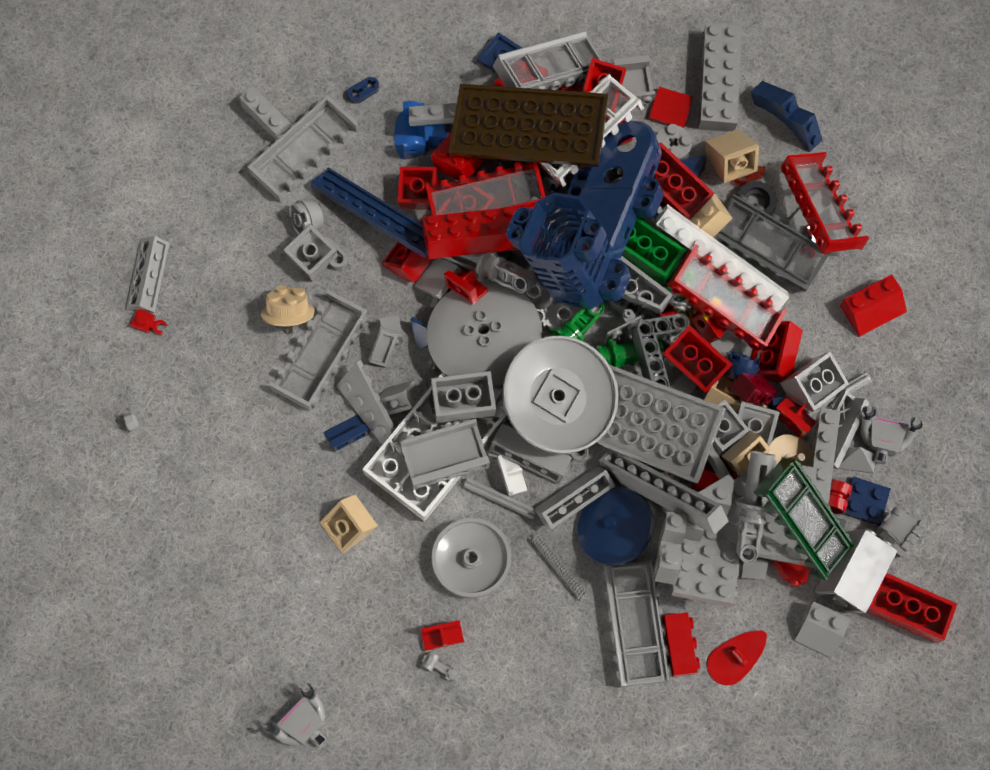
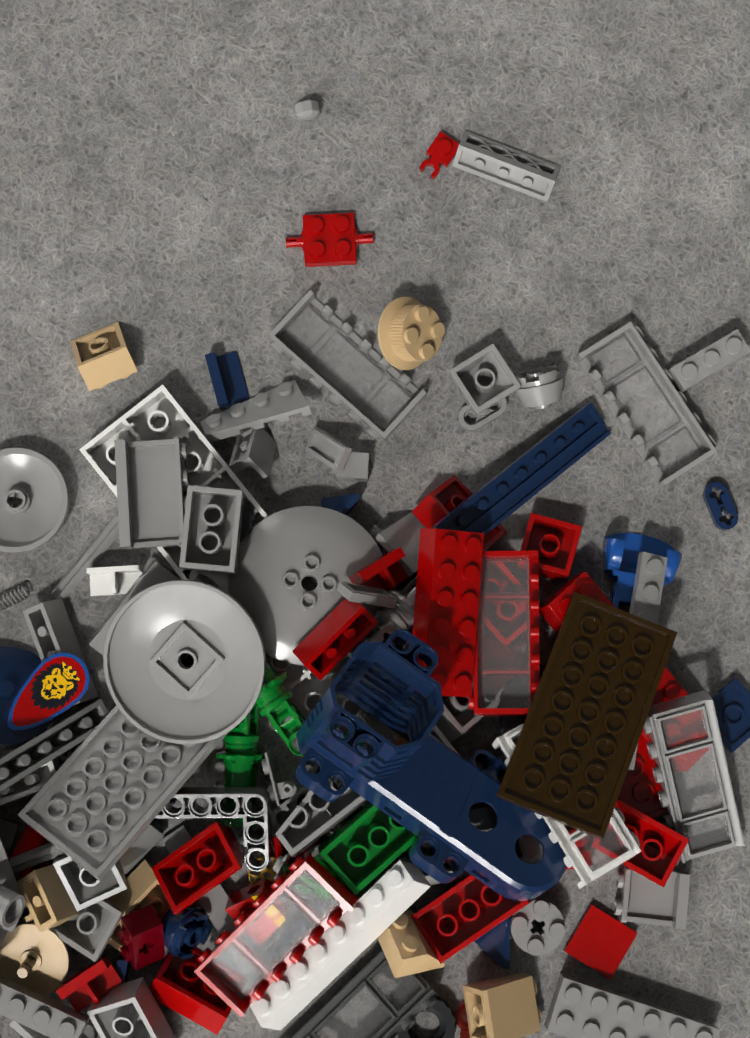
camera: 105 degrees right, 10 degrees up
(227, 385) = (329, 240): none -> red plate
(483, 284) = (367, 595): none -> light grey tile
(517, 298) = (334, 637): none -> red brick
(604, 490) = (49, 691): none -> shield

